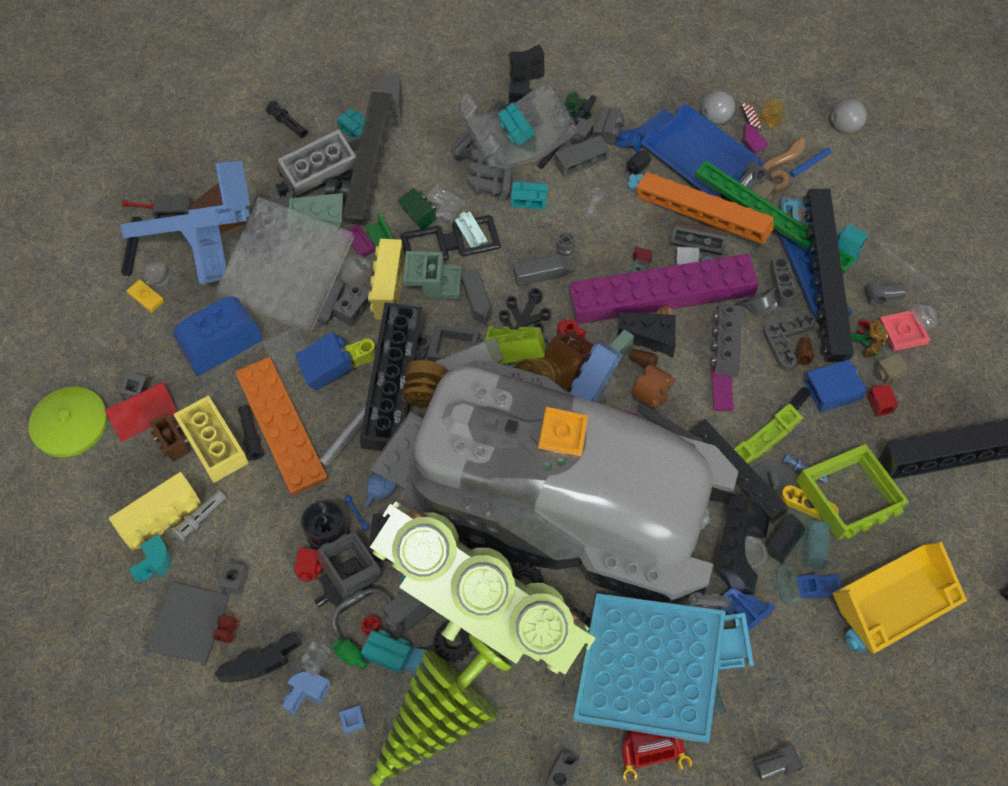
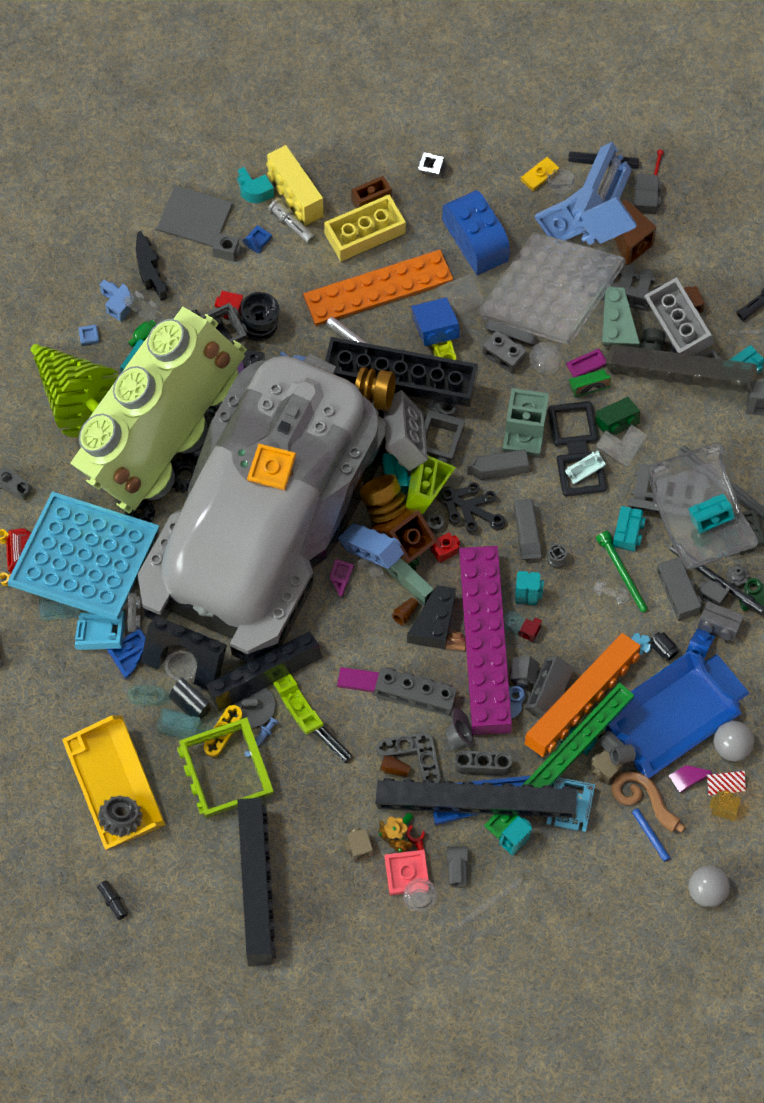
camera: 95 degrees right, 5 degrees up
(68, 422) = (405, 117): lime dish -> none
(136, 412) = (405, 174): red sticker -> none
(220, 550) = (257, 239): none -> blue tile
(225, 629) = (181, 241): clear red wheel -> none
(251, 439) = (363, 262): black pin -> none
(364, 525) = (291, 341): blue hinge -> none
(388, 275) = (516, 374): light yellow brick -> none
(542, 212) = (605, 540): none -> green piece
(606, 257) = (528, 588): none -> teal brick
(653, 386) = (365, 608): dark orange brick -> none
(664, 422) = (320, 617): dark grey axle -> none
(818, 587) = (140, 722): blue slope -> none
(835, 385) = (347, 785): blue brick -> none
(882, 400) = (325, 826): red brick -> none
(942, 591) = (120, 816): none -> dark grey gear

